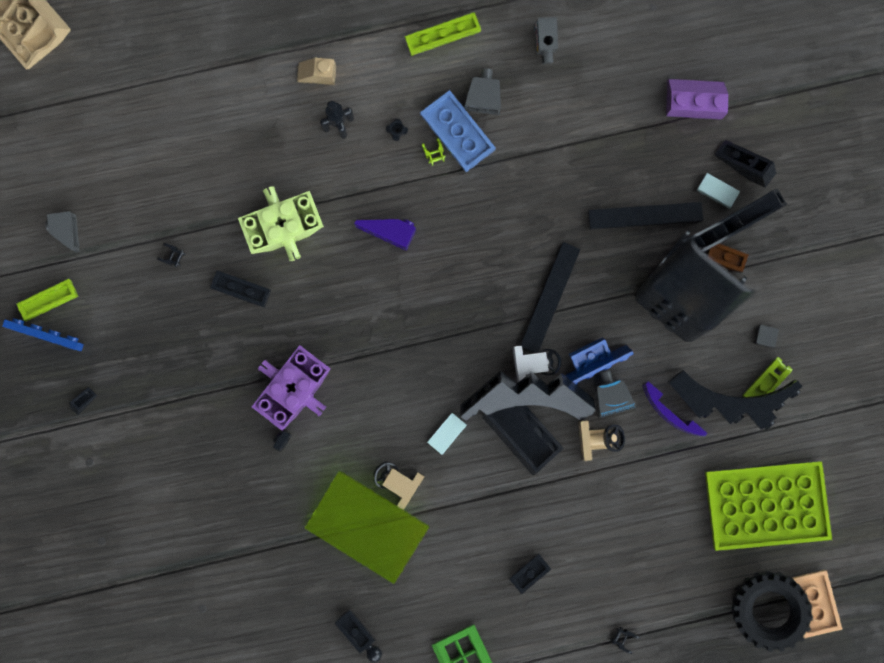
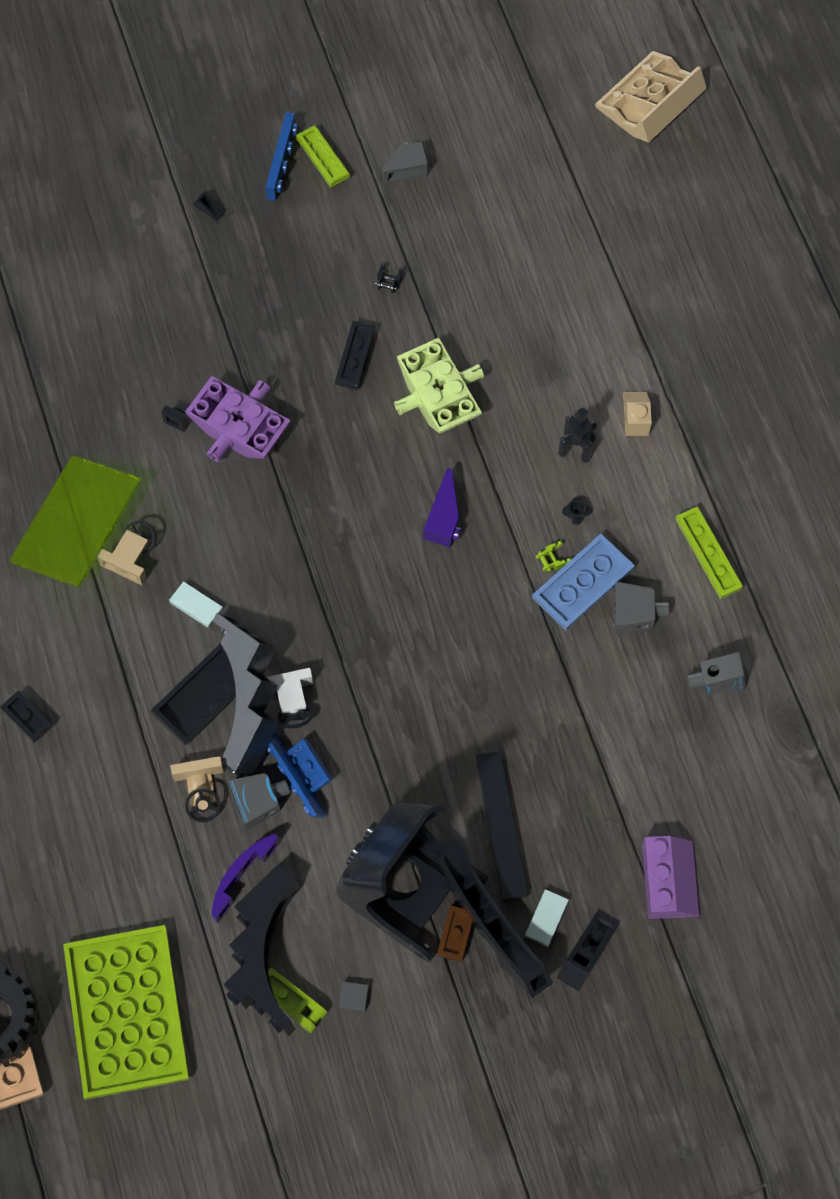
camera: 85 degrees right, 15 degrees down
(550, 298) = (379, 713): black tile -> none

